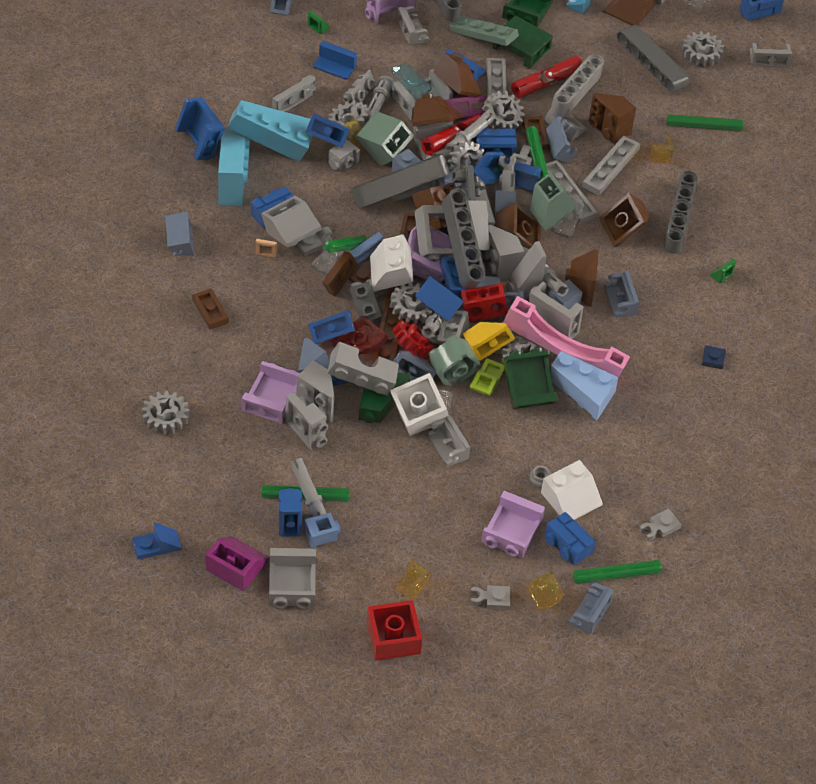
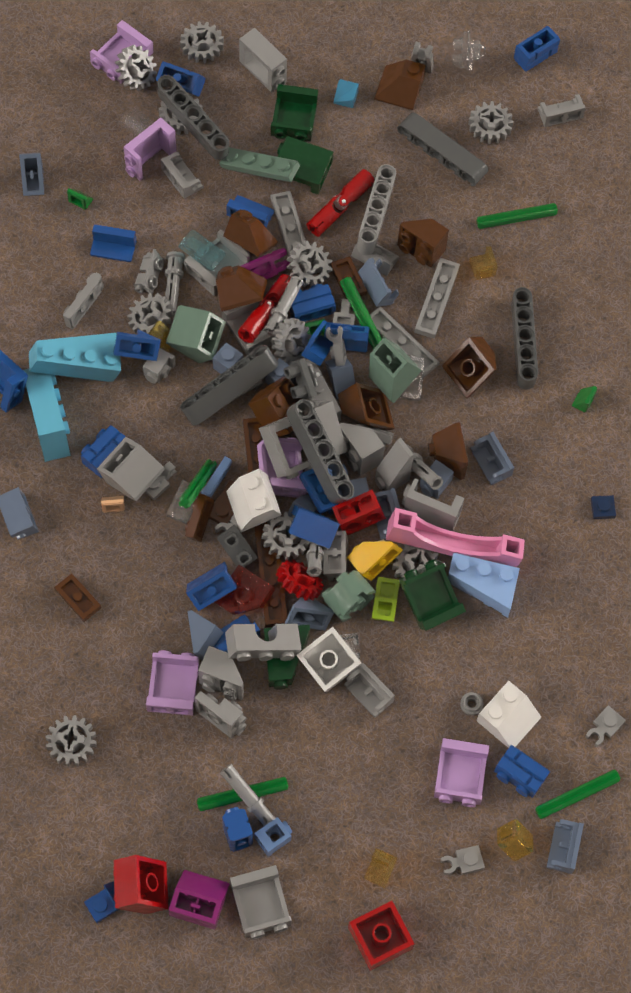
camera: 15 degrees left, 15 degrees up
(187, 531) = (140, 884): none -> red brick

